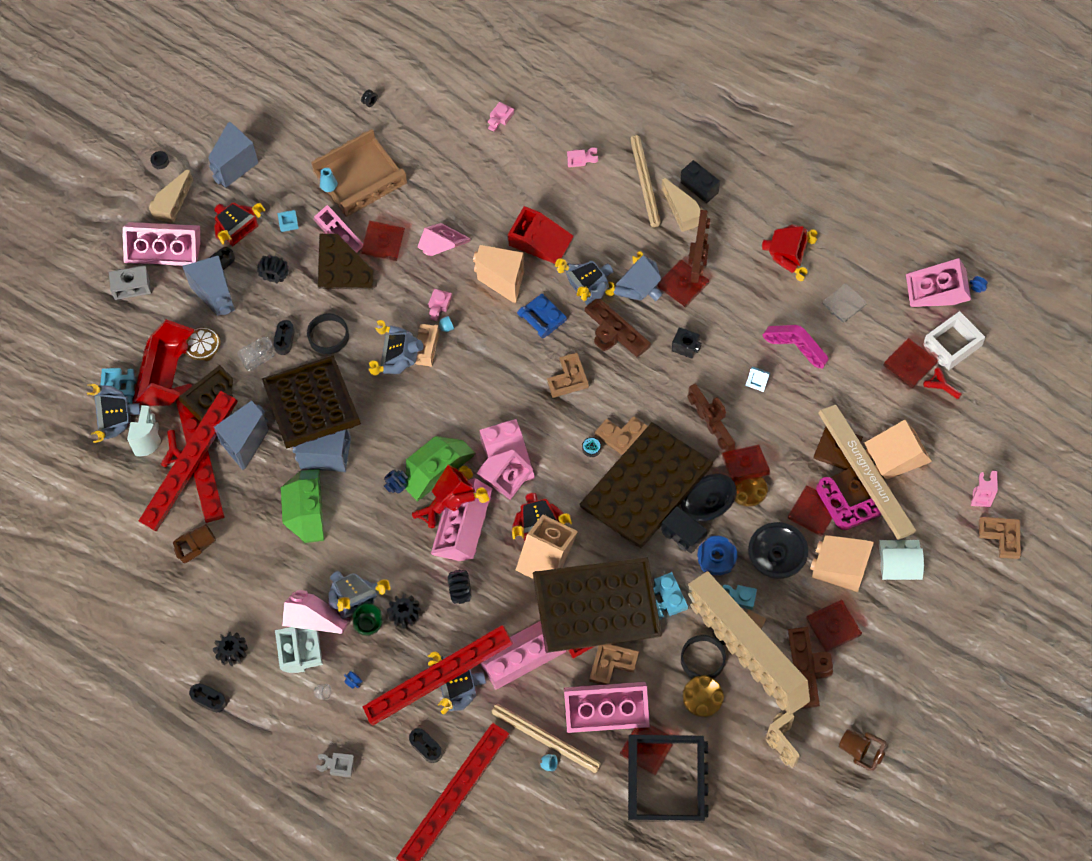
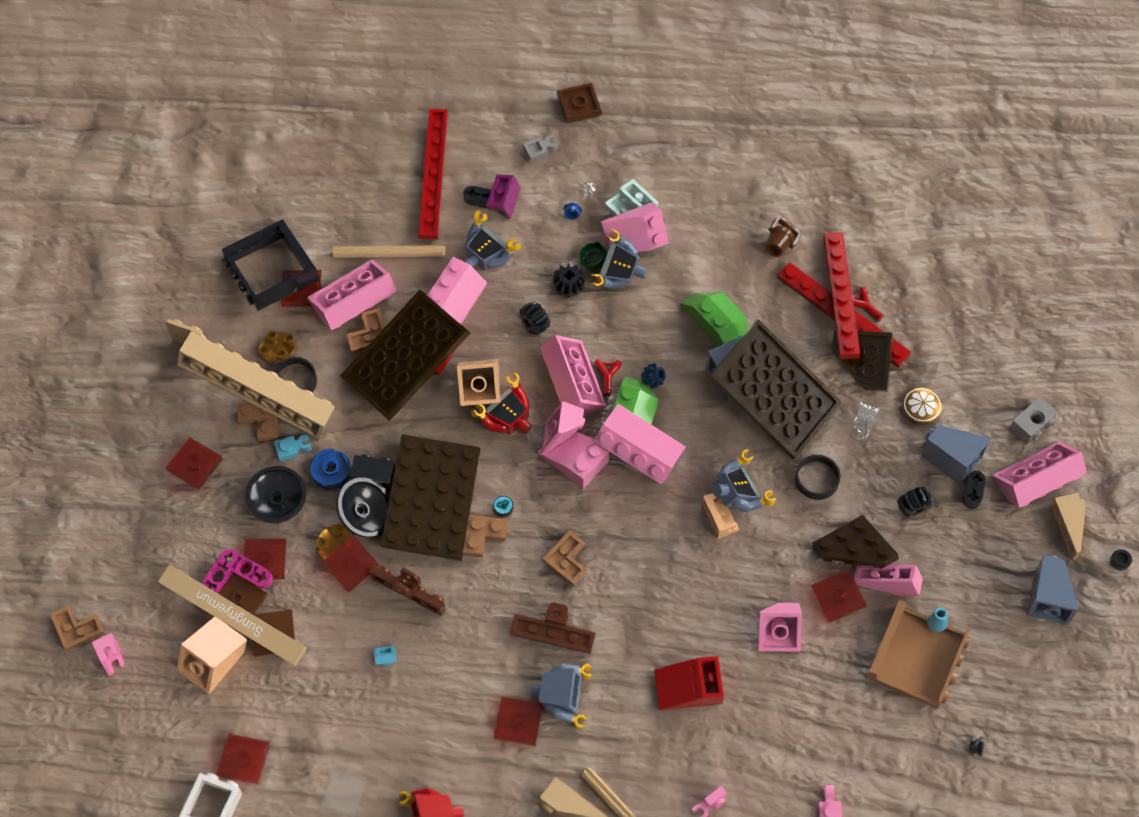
camera: 145 degrees right, 0 degrees up
(112, 411) = (940, 296): torso -> none
(114, 378) = (964, 323): medium azure plate -> none
(144, 435) = (896, 294): light aqua brick -> none
(160, 364) = (932, 352): red windscreen -> none
(205, 701) = (676, 141): black beam -> none
(236, 221) = (991, 529): torso -> none
(237, 644) = (686, 179): black gear -> none
(243, 433) = (813, 334): sand blue slope -> none
(265, 792) = (579, 103): none -> reddish brown plate
(279, 337) = (858, 450): black beam -> none
(288, 221) = (944, 564): medium azure plate -> none
(406, 729) = (504, 194): none -> magenta panel
(437, 675) = (499, 235): red plate -> none
(439, 302) = (739, 566): bright pink plate -> none
(445, 324) = (715, 546): medium azure hinge -> none
(452, 421) = (639, 444): none -> bright pink slope
(455, 489) = (594, 387): red torso -> none
(500, 270) = (700, 618): light nougat slope -> none
(544, 310) = (632, 614): blue plate -> none
(549, 762) = (374, 234): medium azure hinge -> none
(586, 278) = (609, 658): torso -> none
(670, 594) = (352, 415): medium azure plate -> none
(686, 336) = (482, 659): black brick -> none
(699, 250) = (519, 753): copper plate -> none
(799, 336) = (366, 702): dark pink beam -> none
(809, 663) = (199, 415): copper plate -> none
(841, 561) = (212, 516): light nougat slope -> none
(858, 745) = (124, 374): reddish brown piece -> none
(901, 560) = (161, 551): light aqua brick -> none
(942, 384) = (202, 756): red piece -> none

